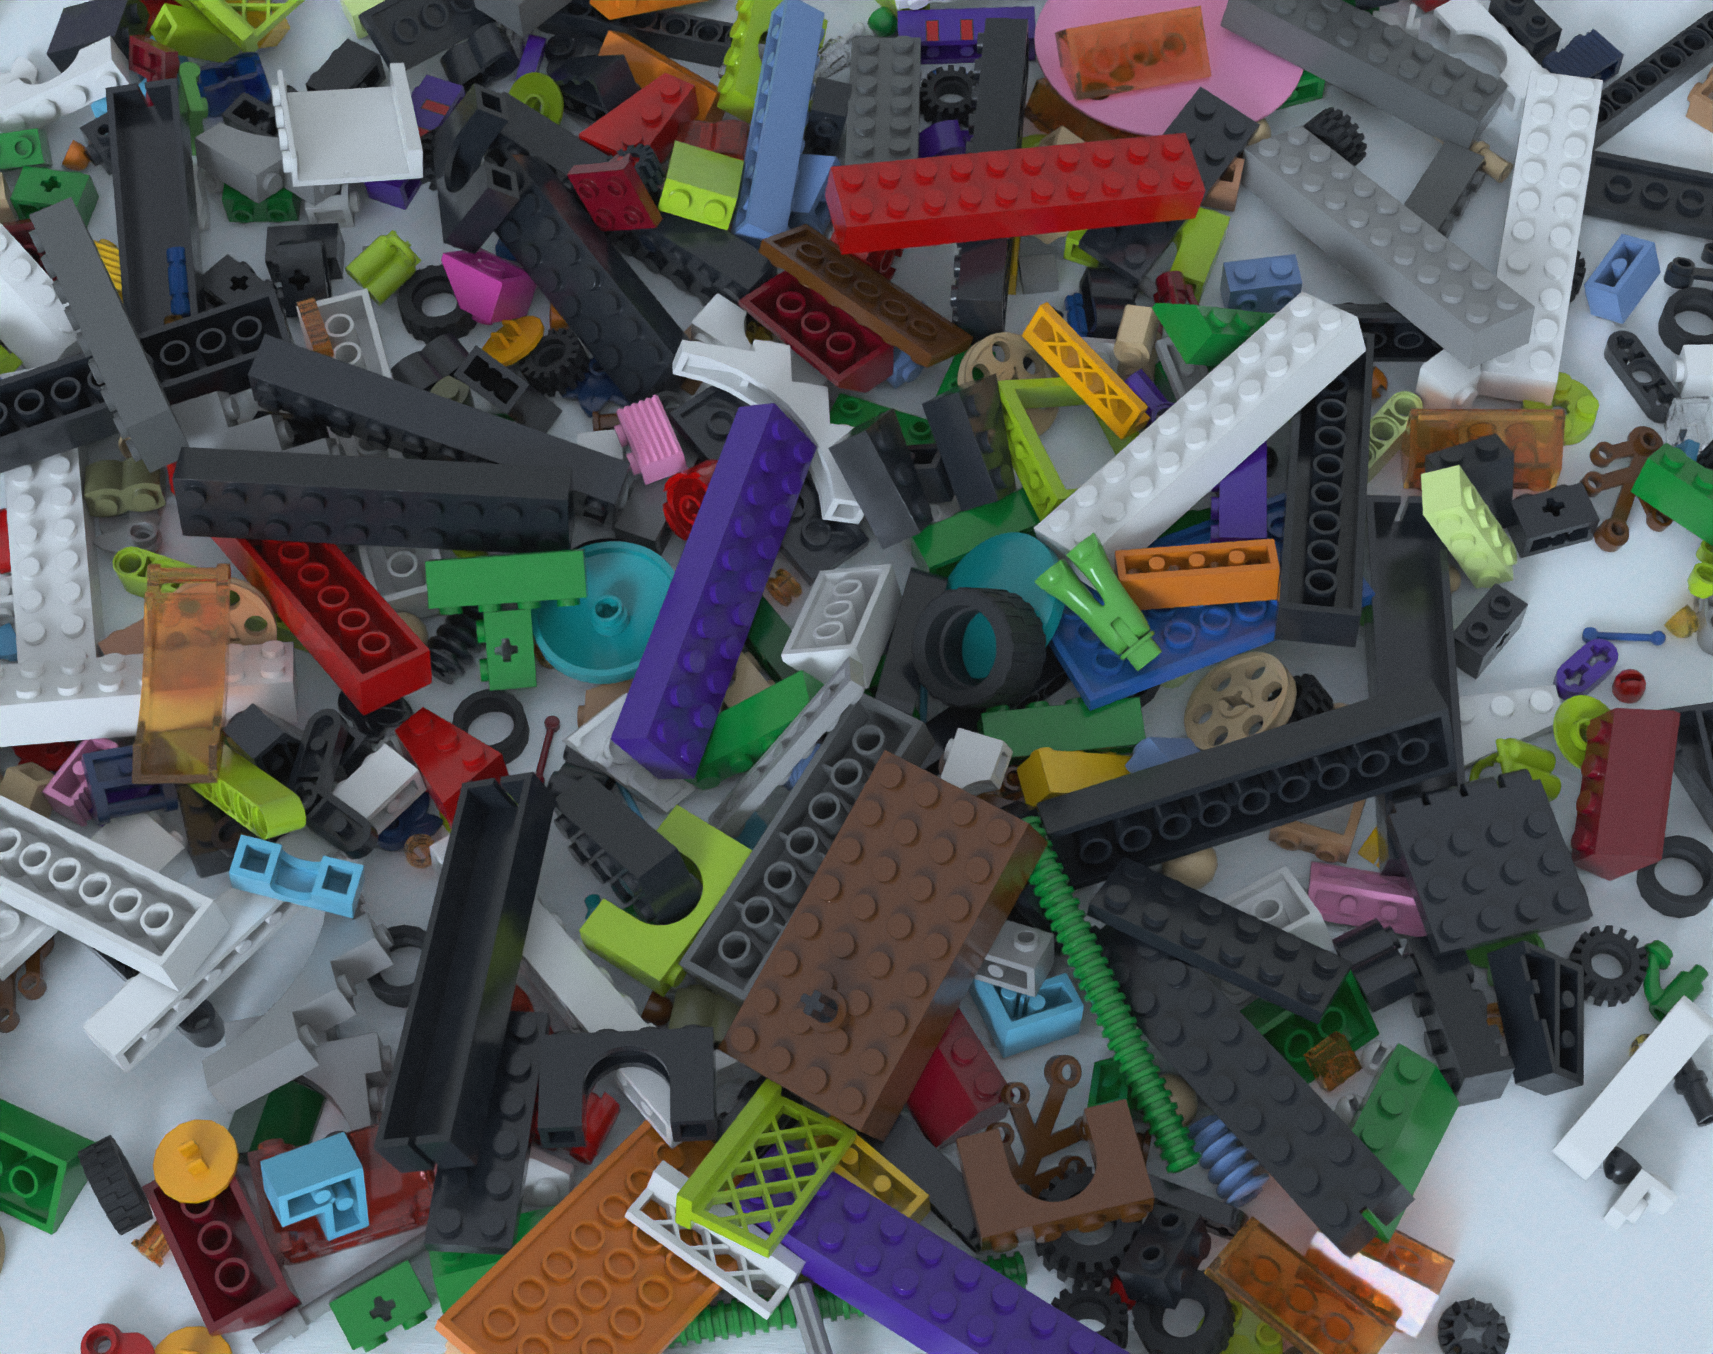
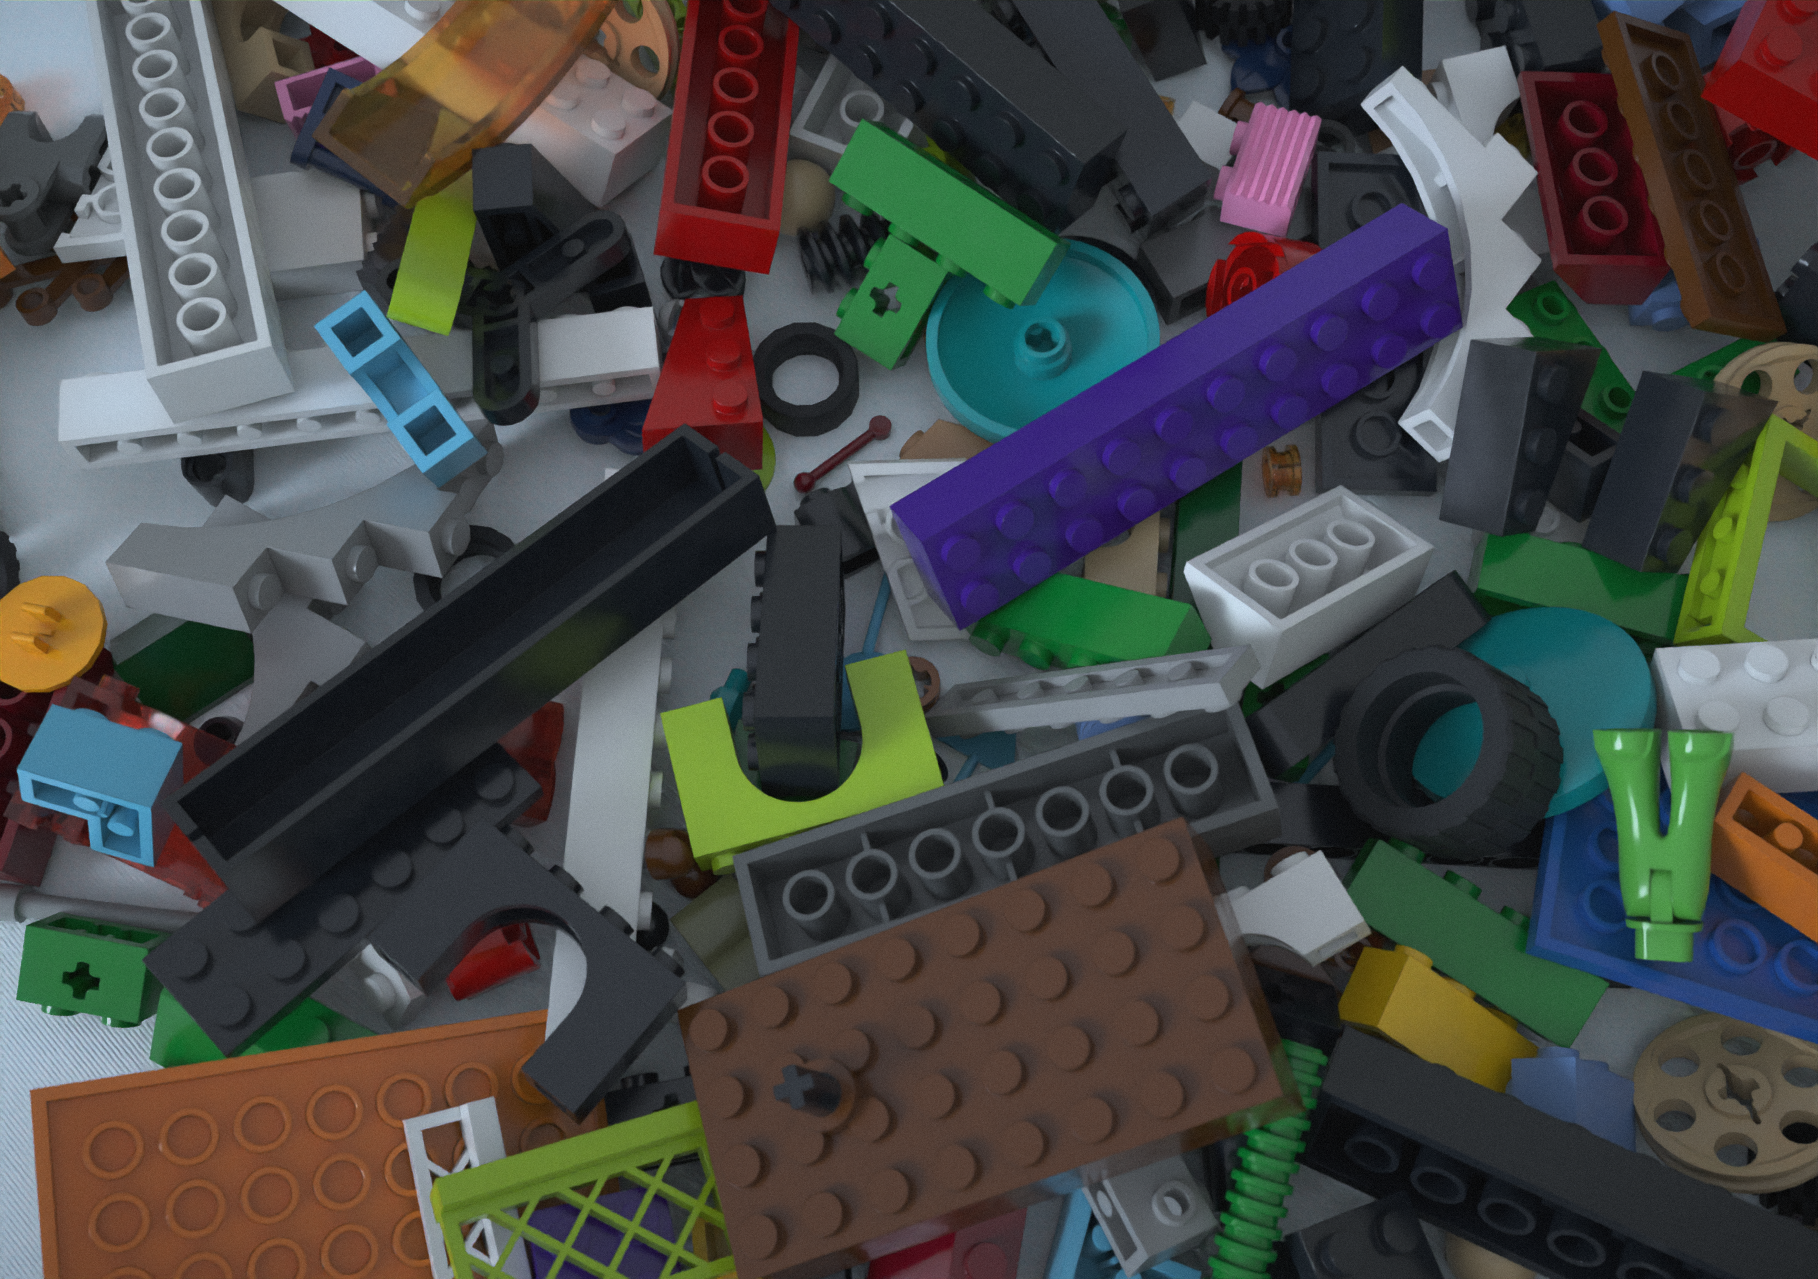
camera: 40 degrees right, 10 degrees up
(423, 842) = (592, 459): clear orange hinge -> none
(643, 994) = (668, 853): none -> reddish brown hinge

